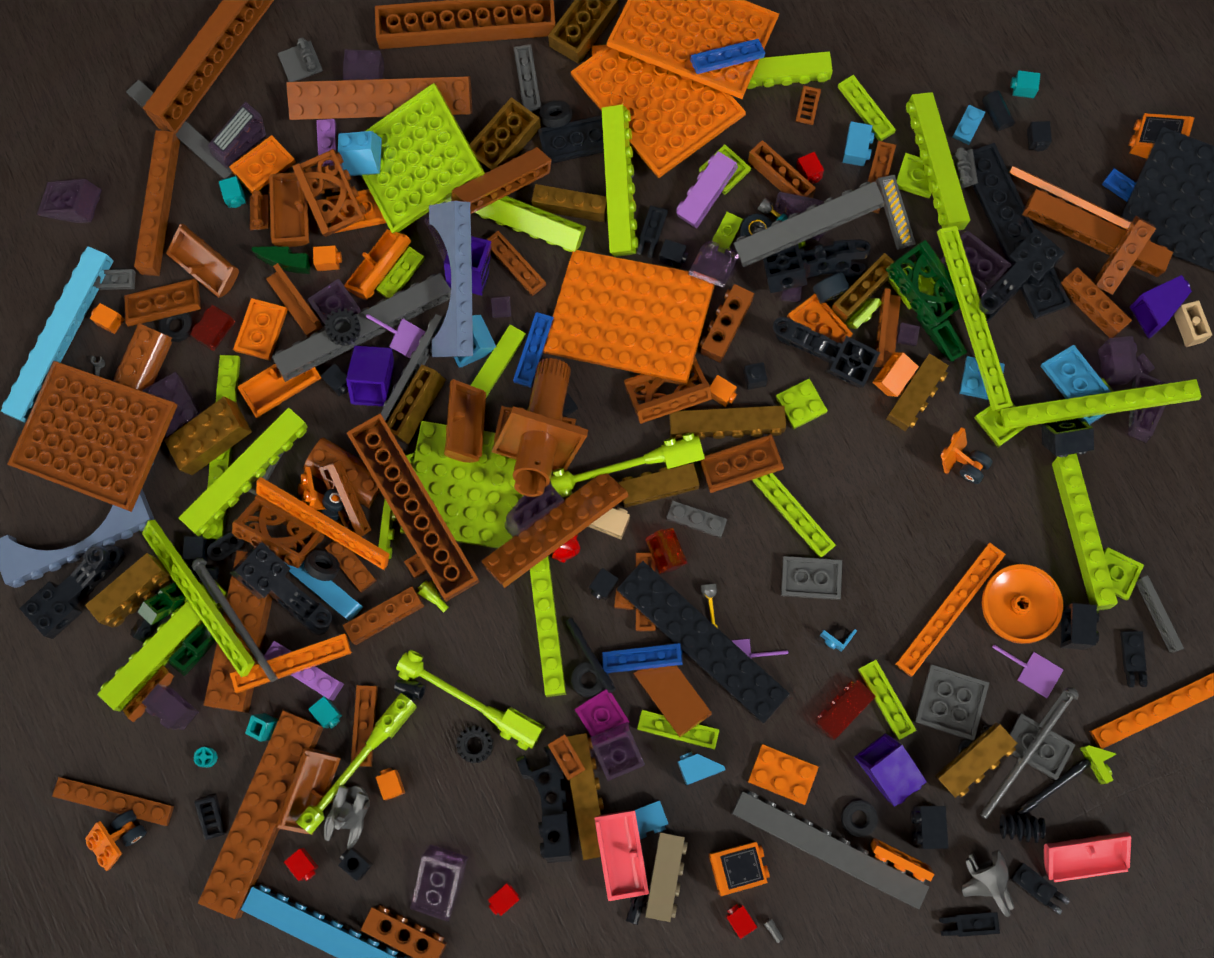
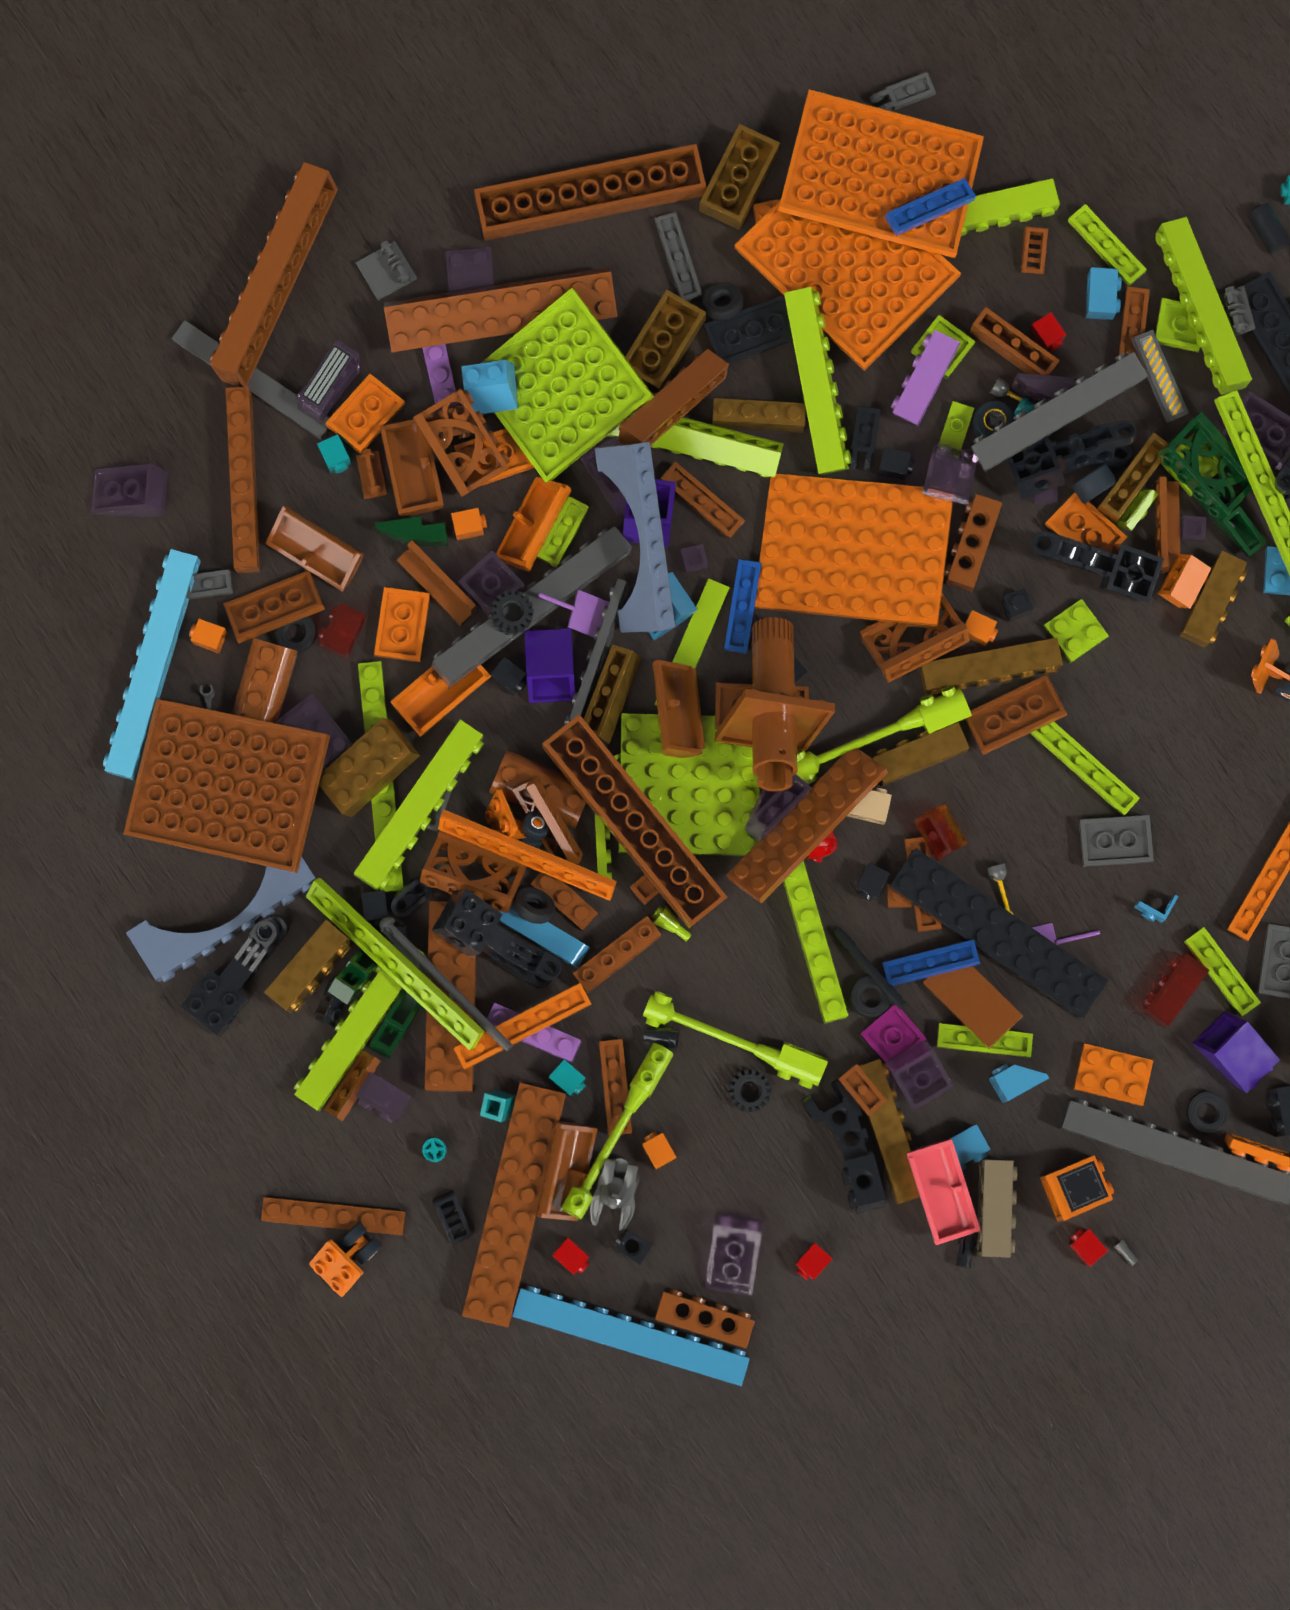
camera: 15 degrees left, 5 degrees up
(696, 519) = (970, 788): dark grey plate -> none
(968, 124) = (1235, 250): dark azure plate -> none

